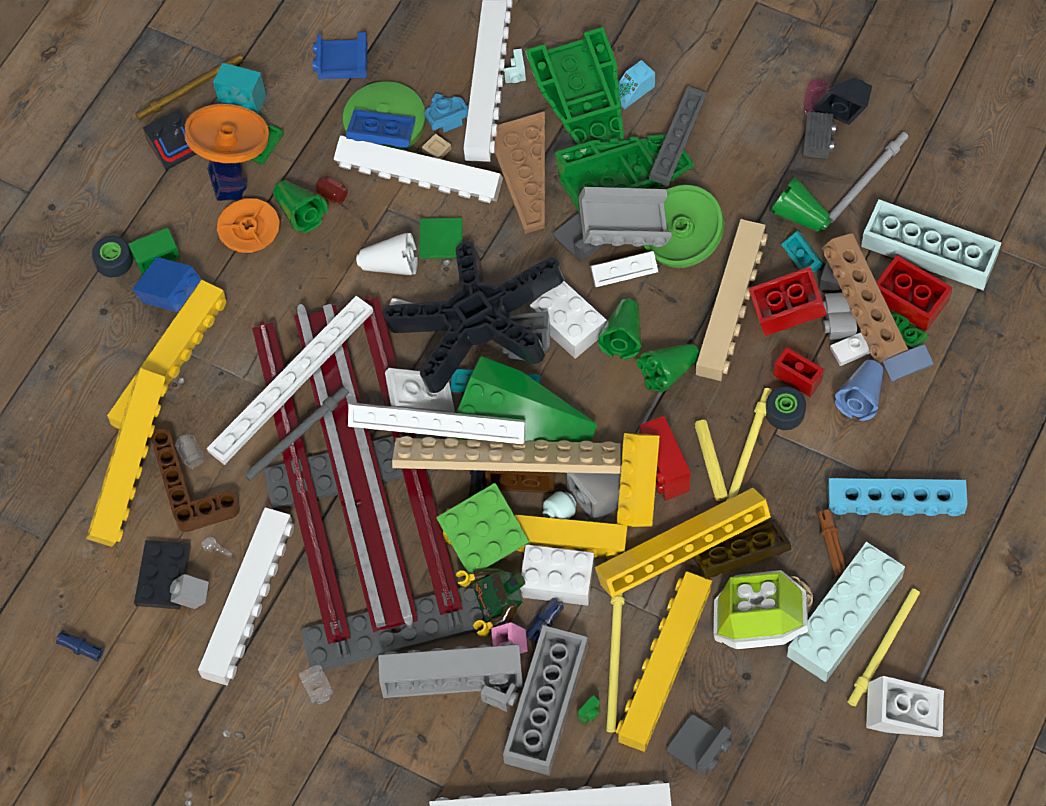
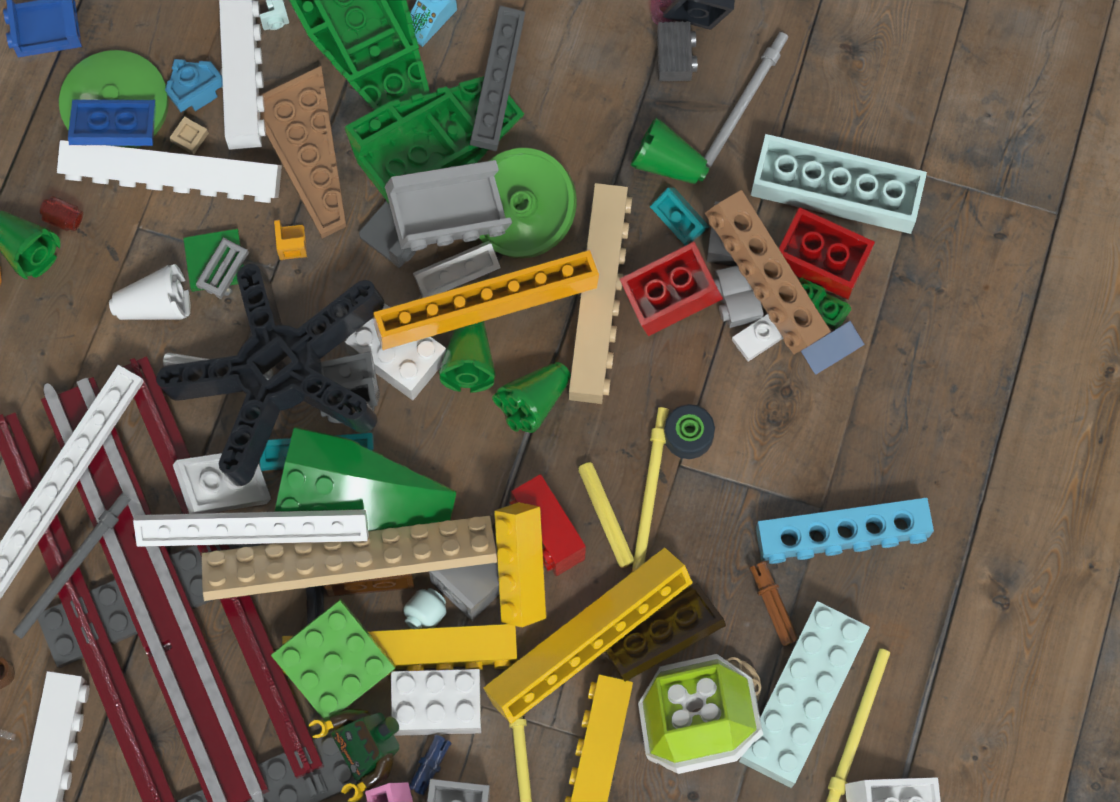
camera: 15 degrees left, 10 degrees up
(445, 255) = (211, 288): none -> light grey tile
(500, 232) = (290, 241): none -> light orange panel
(642, 286) = (486, 300): none -> light orange brick
(798, 372) = (698, 381): red brick -> none
(861, 391) = (781, 395): medium blue cone -> none

